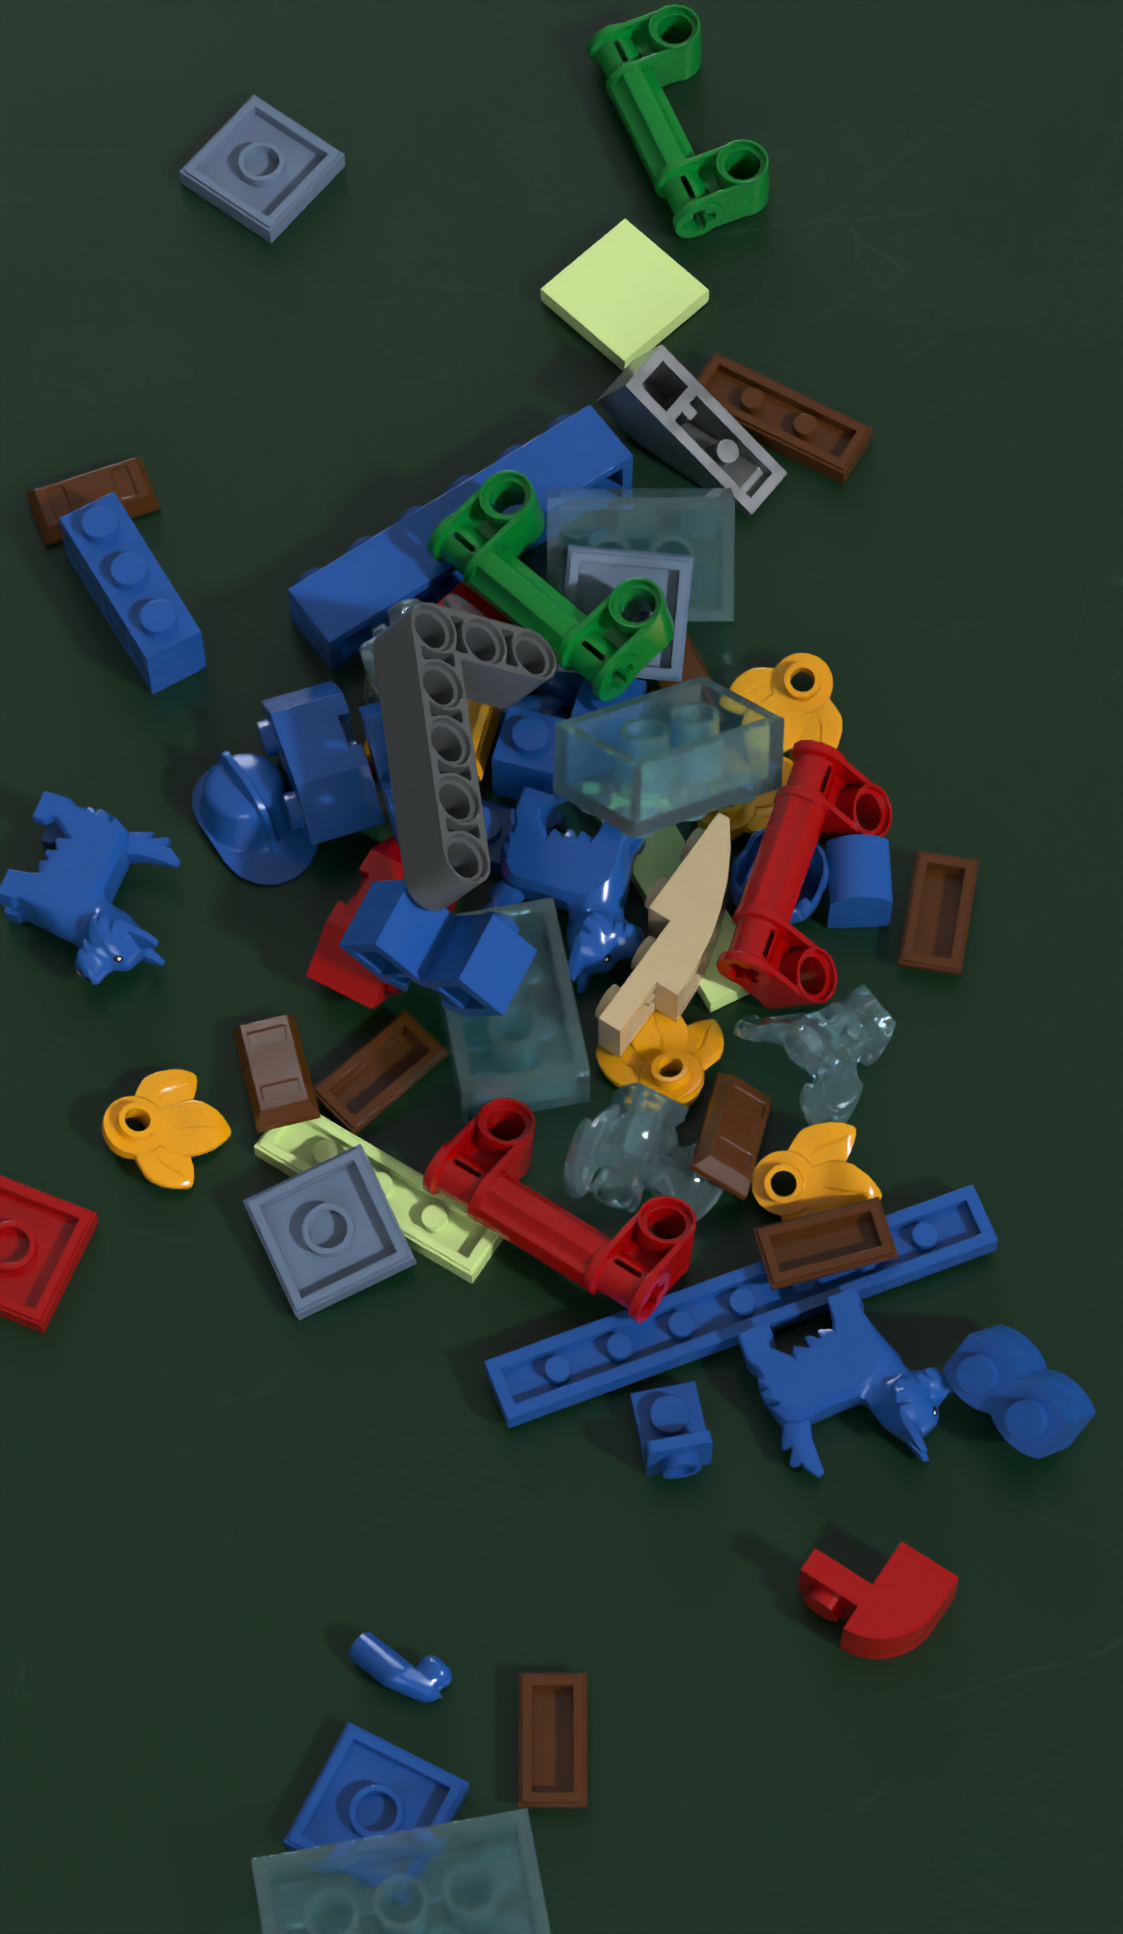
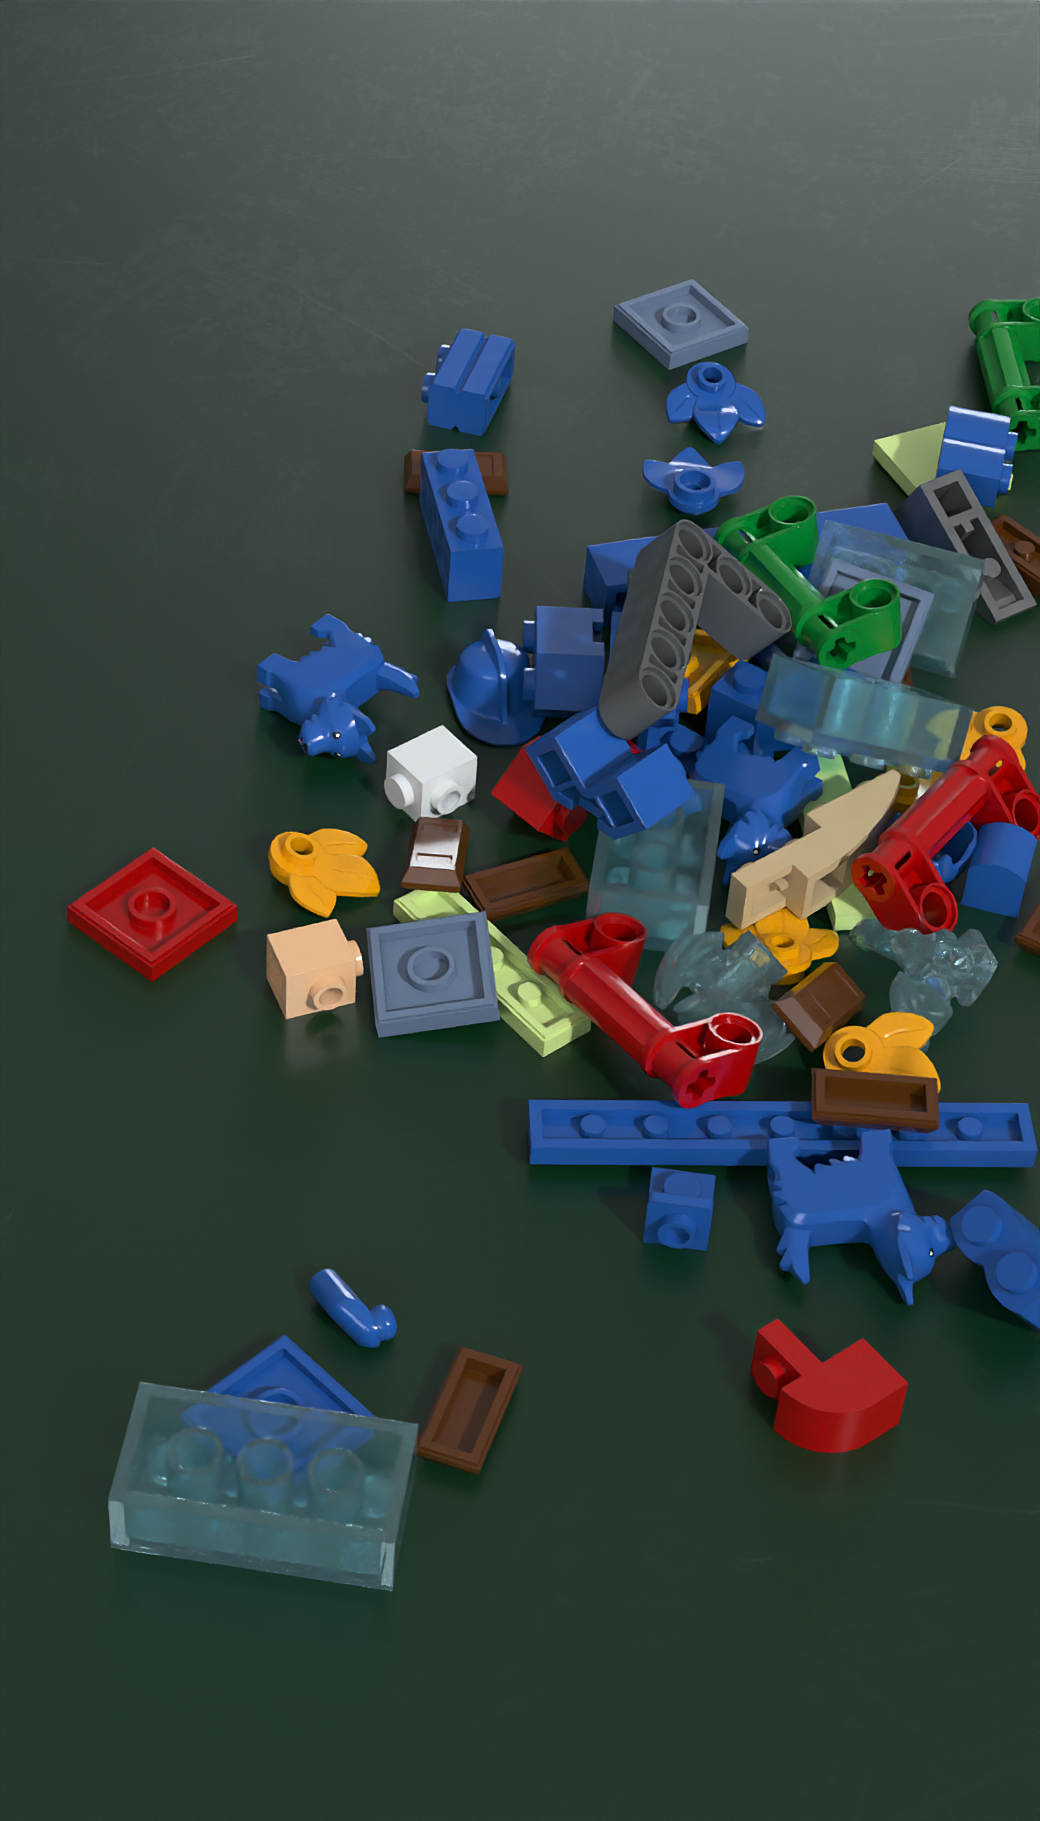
camera: 15 degrees right, 20 degrees down
(60, 360) = (469, 381): none -> blue brick
(208, 1271) = (312, 968): none -> light nougat brick
(232, 969) = (430, 774): none -> white brick
(343, 295) = (714, 402): none -> blue plate
(357, 414) = (692, 482): none -> blue plate
(662, 291) = (978, 446): none -> blue brick

